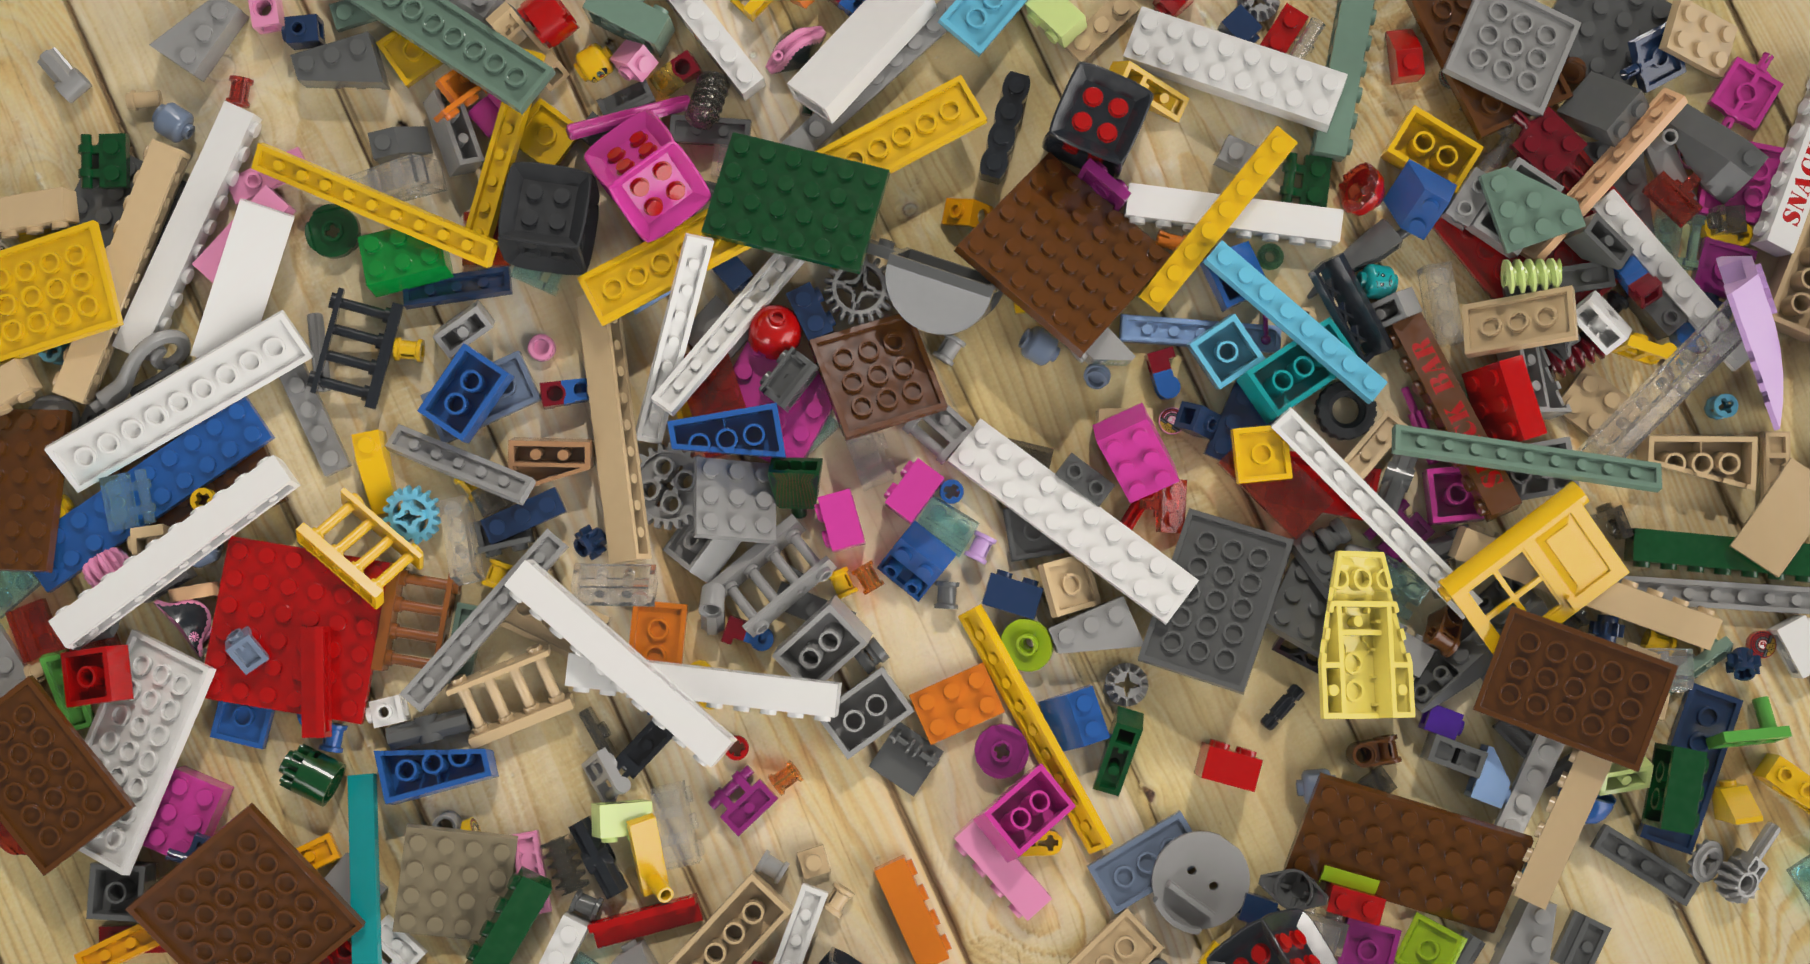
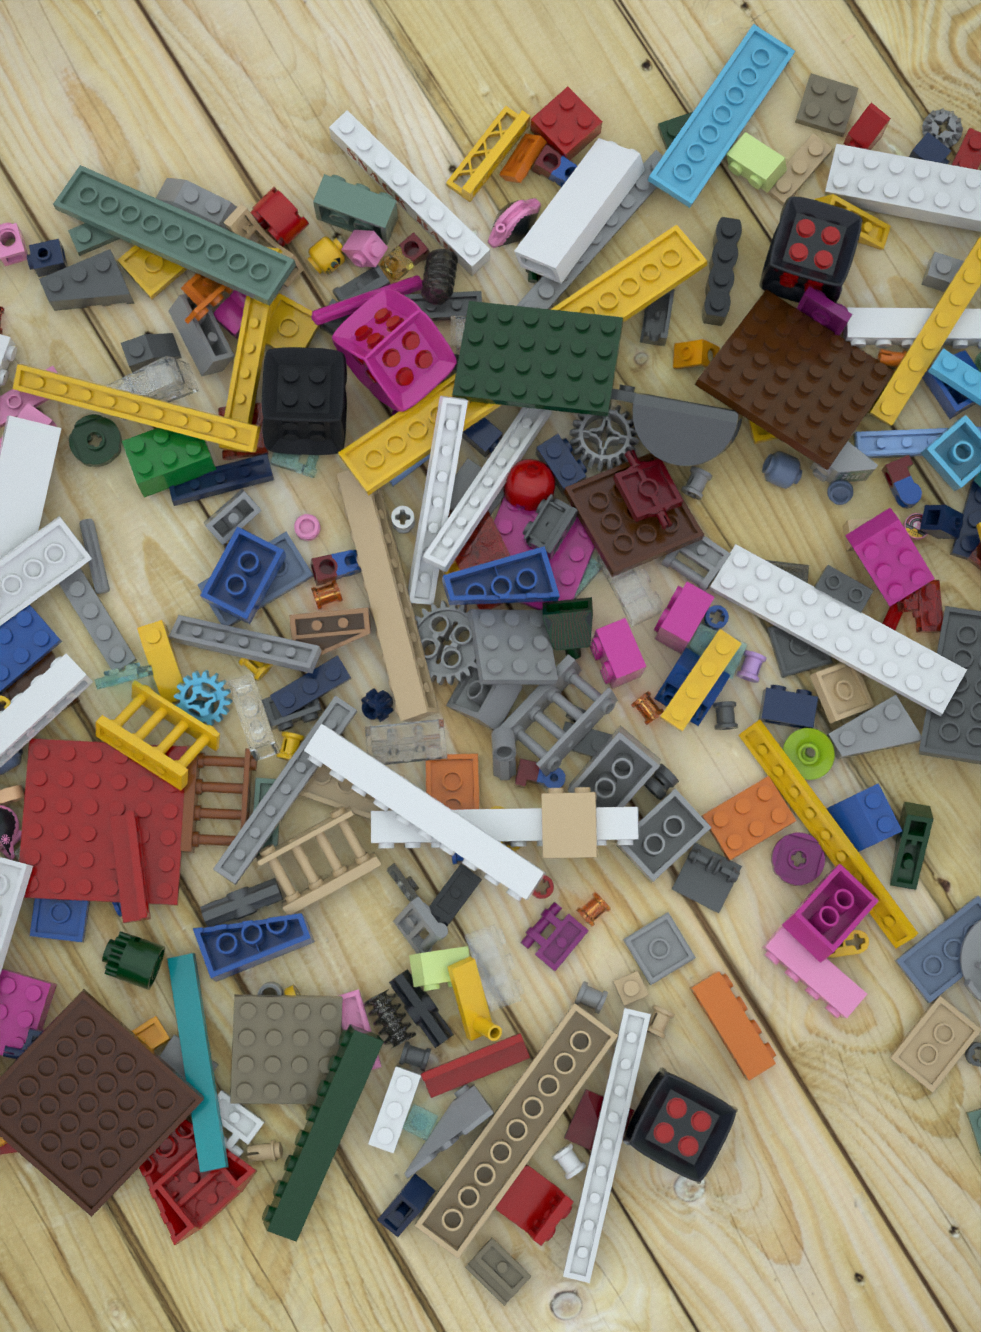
camera: 10 degrees left, 5 degrees down
(245, 650) = (59, 843): sand blue bracket -> none
(333, 743) = (149, 928): blue bush -> none
(341, 480) = (131, 673): none -> clear light blue plate
(384, 342) = (152, 563): black fence -> none
(397, 709) = (209, 894): white brick -> none
(408, 349) = (180, 543): yellow bush -> none
(489, 502) = (277, 676): clear smoke bracket -> none
(552, 420) = (326, 594): none -> clear orange bush
(635, 345) = (396, 515): none -> white bush
(766, 693) = (569, 823): none -> tan panel
(842, 583) = (624, 716): yellow bush -> none
(848, 824) = (659, 948): none -> light grey tile
(894, 353) = (648, 489): none -> dark red plate
(922, 559) = (700, 680): none -> yellow arch
(930, 172) = (657, 320): none -> dark grey hinge
(1117, 675) = (901, 790): light grey gear -> none

